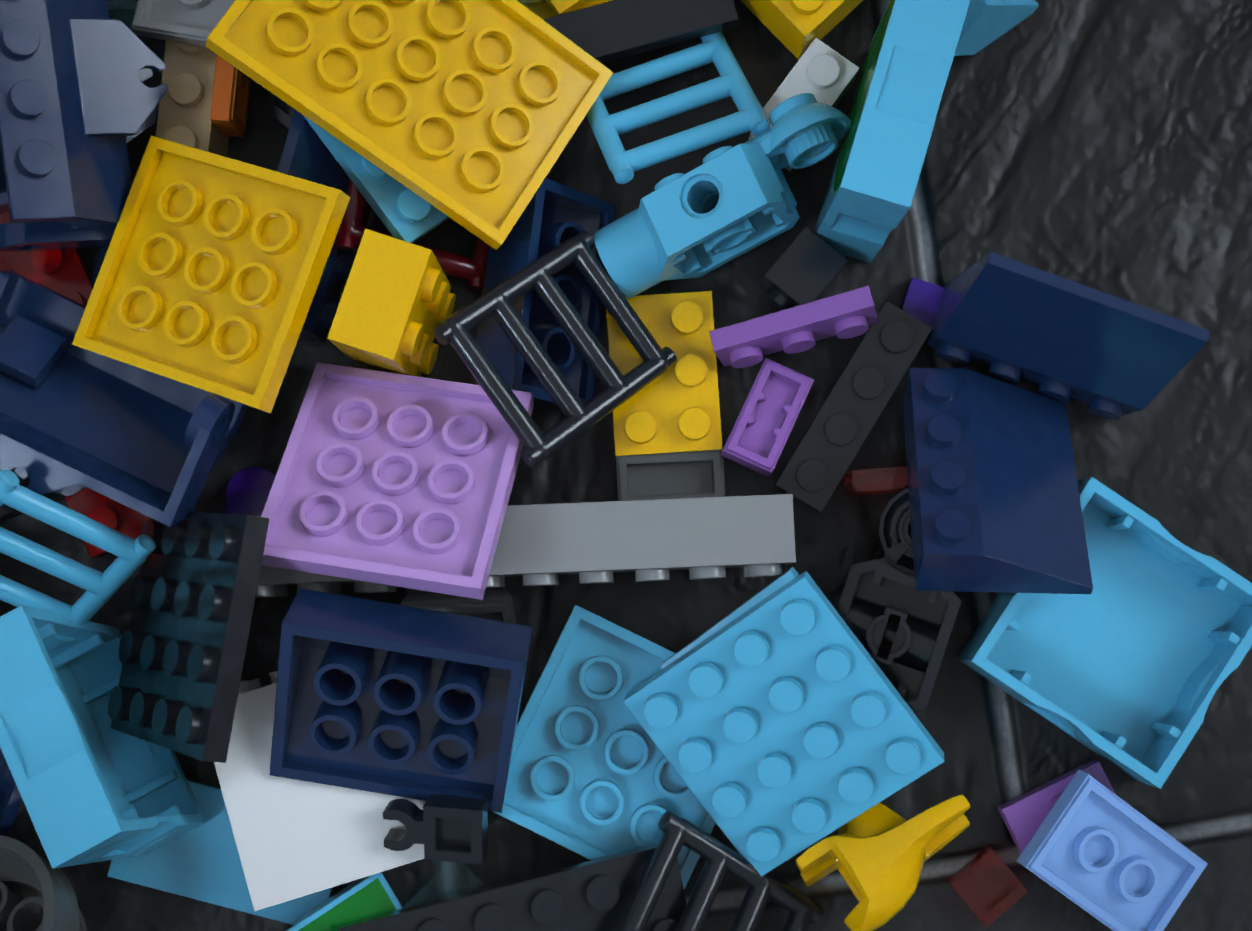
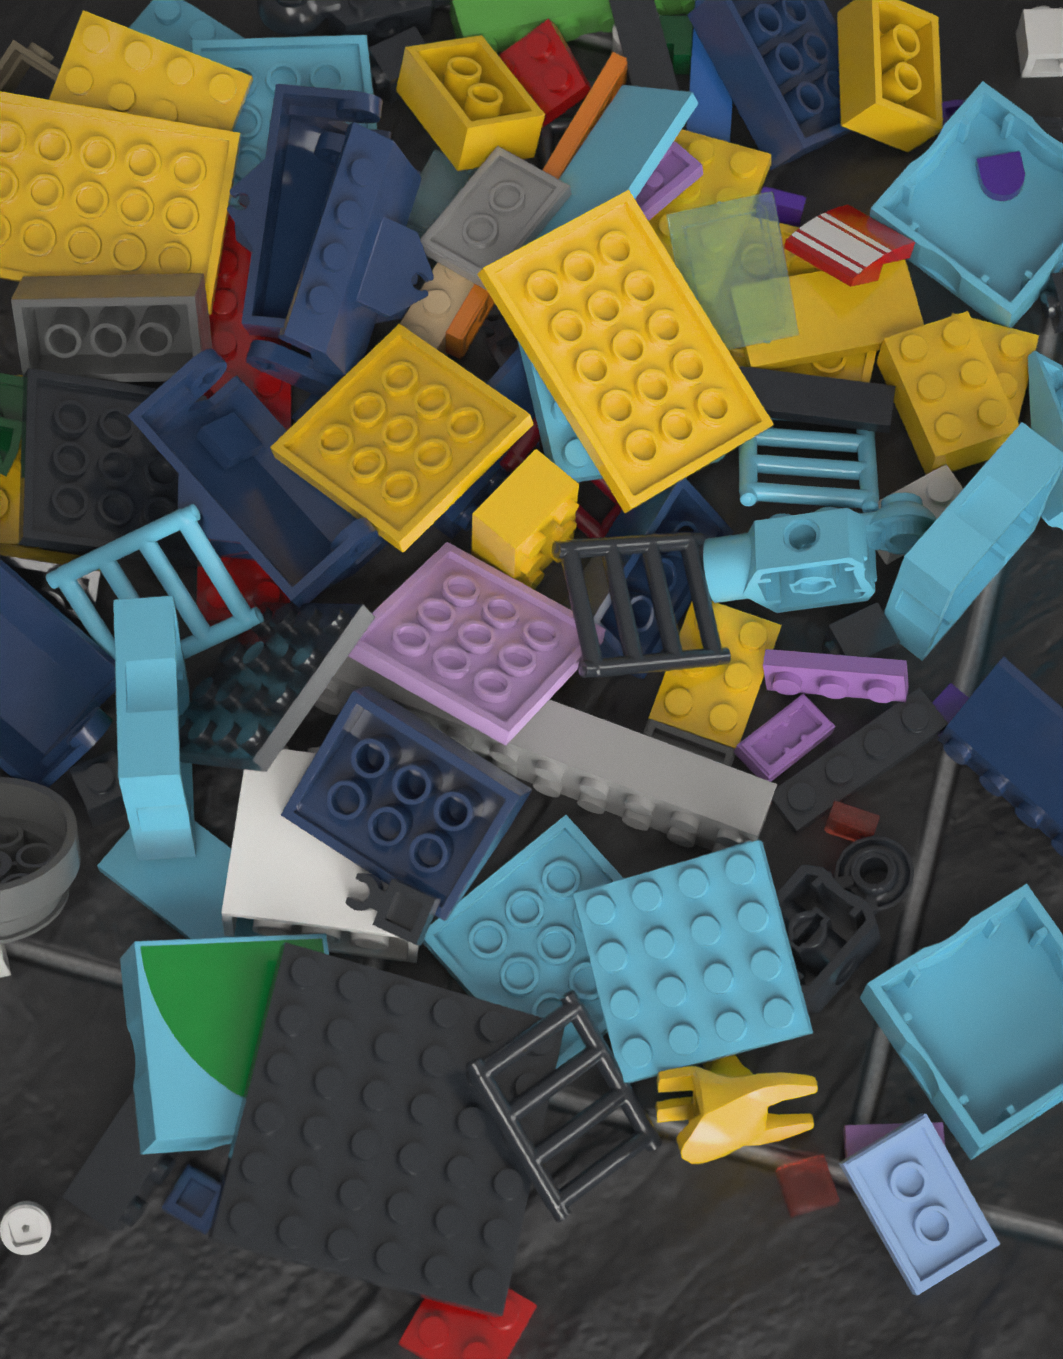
camera: 20 degrees right, 15 degrees down
(991, 487) = (940, 851): dark blue slope -> none

